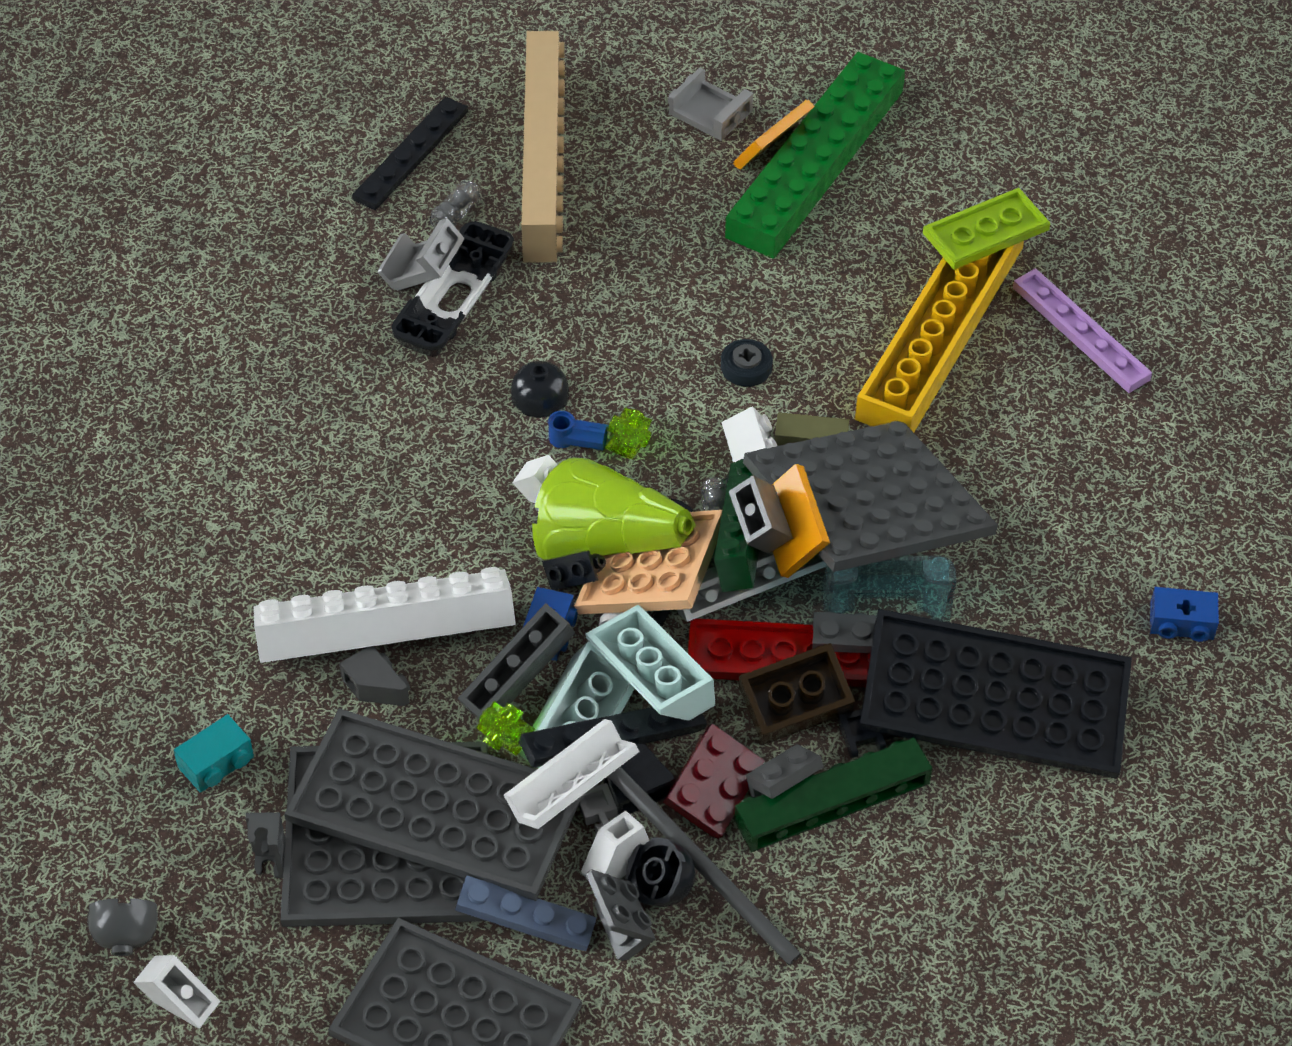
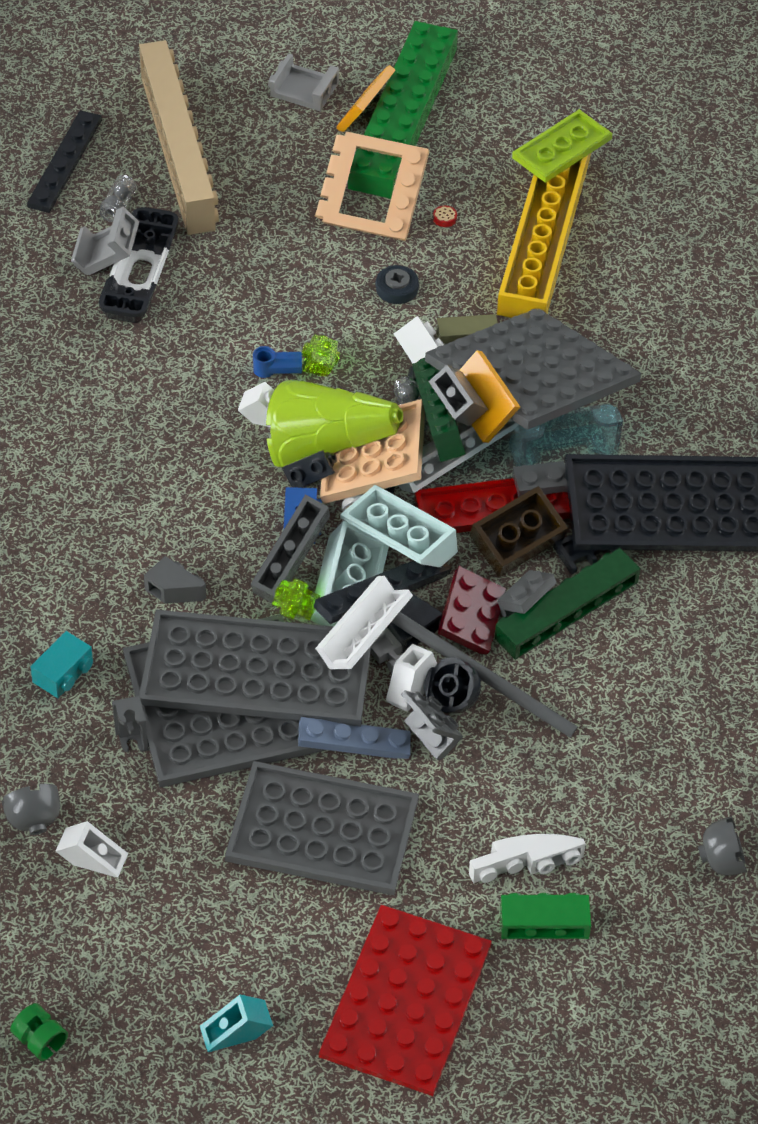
camera: 15 degrees left, 0 degrees up
(383, 614) = (167, 531): white brick -> none
(539, 389) = (235, 333): black cylinder -> none
(783, 255) = (404, 192): none -> light nougat hinge
(828, 289) = (445, 216): none -> tile
(1082, 330) = (656, 215): lavender plate -> none

